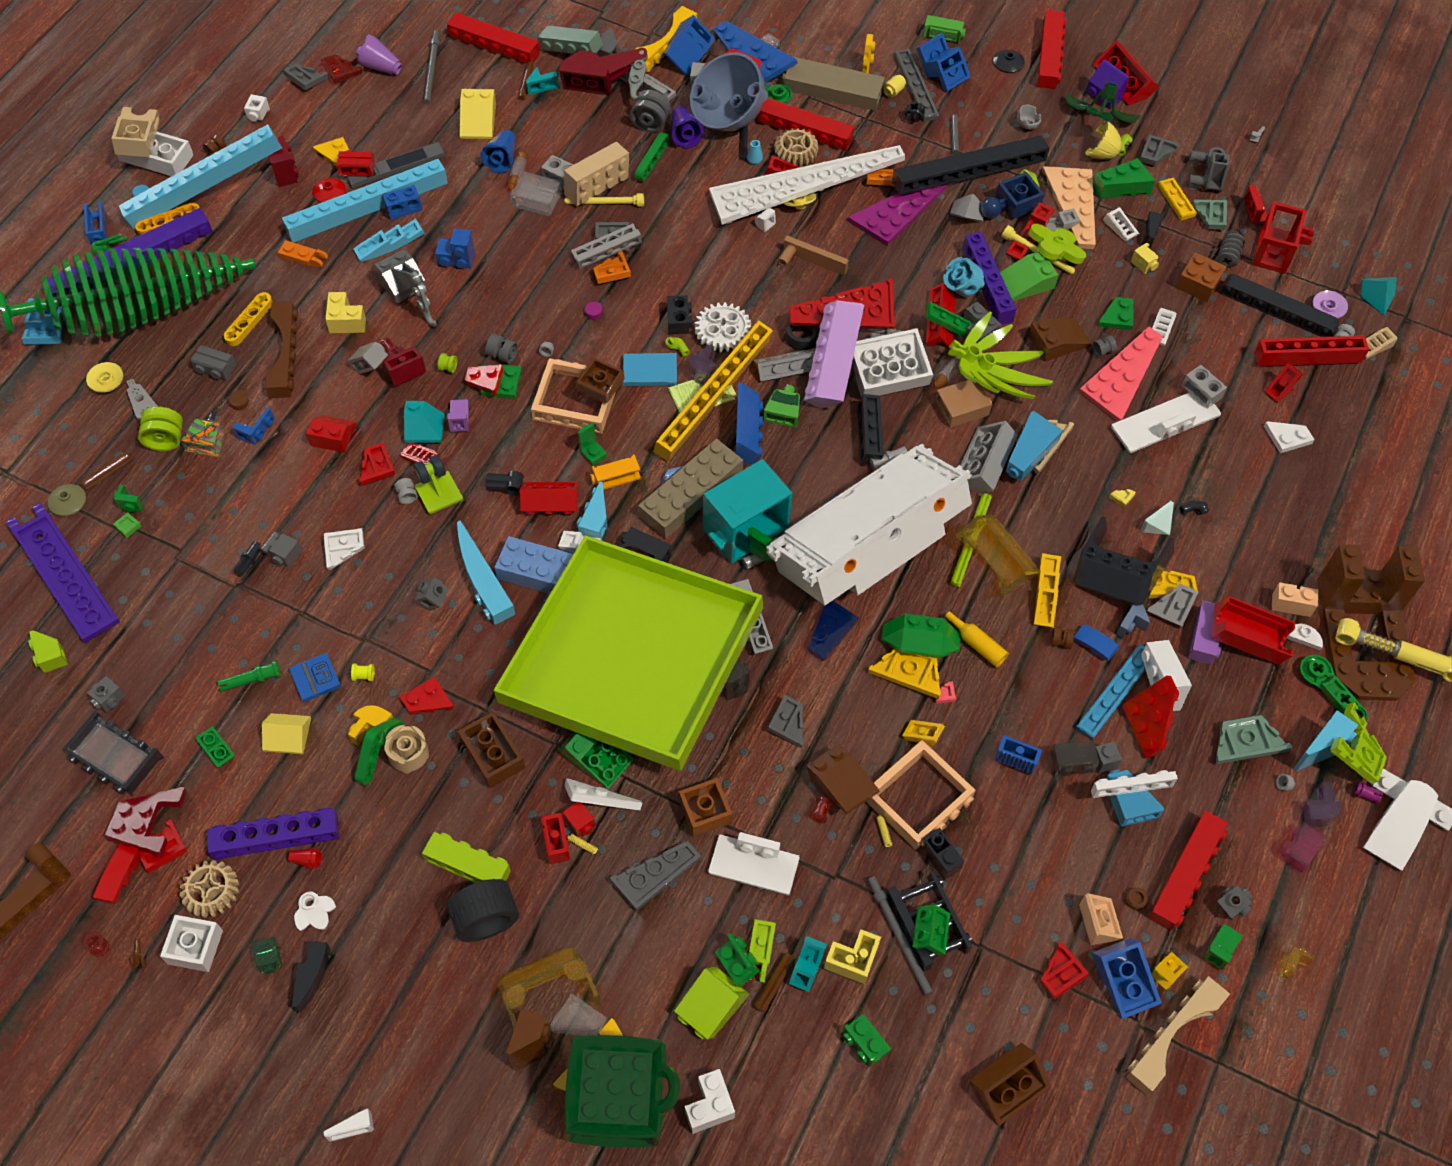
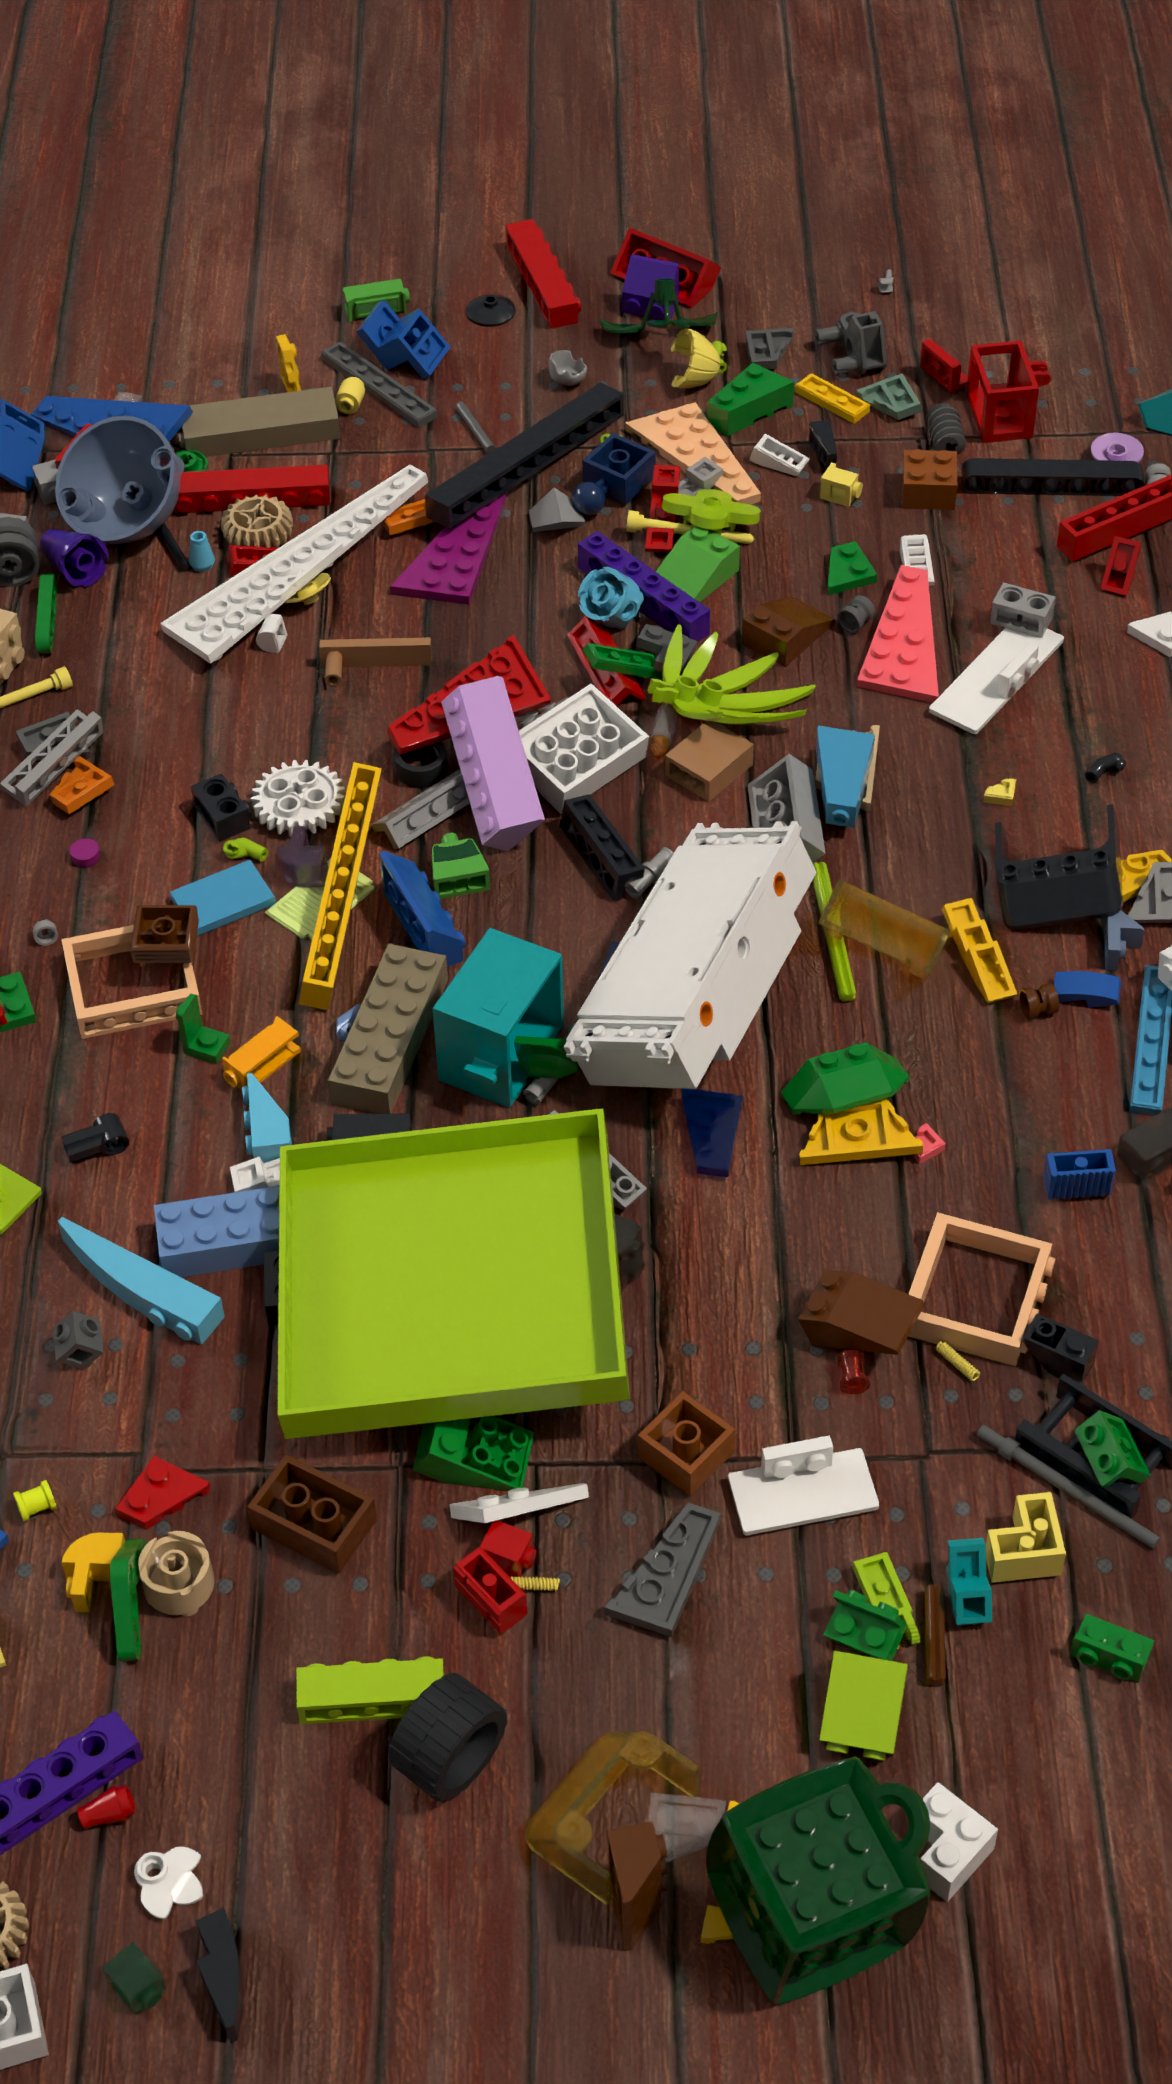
camera: 25 degrees left, 10 degrees down
(549, 497) = (180, 1130): red slope -> none
(788, 721) = (729, 1277): dark grey wing -> none
(914, 111) = (401, 417): black gear -> none
(923, 731) = (924, 1204): yellow slope -> none
(979, 641) = (930, 1054): yellow piece -> none
(1159, 521) = (1072, 801): light aqua slope -> none

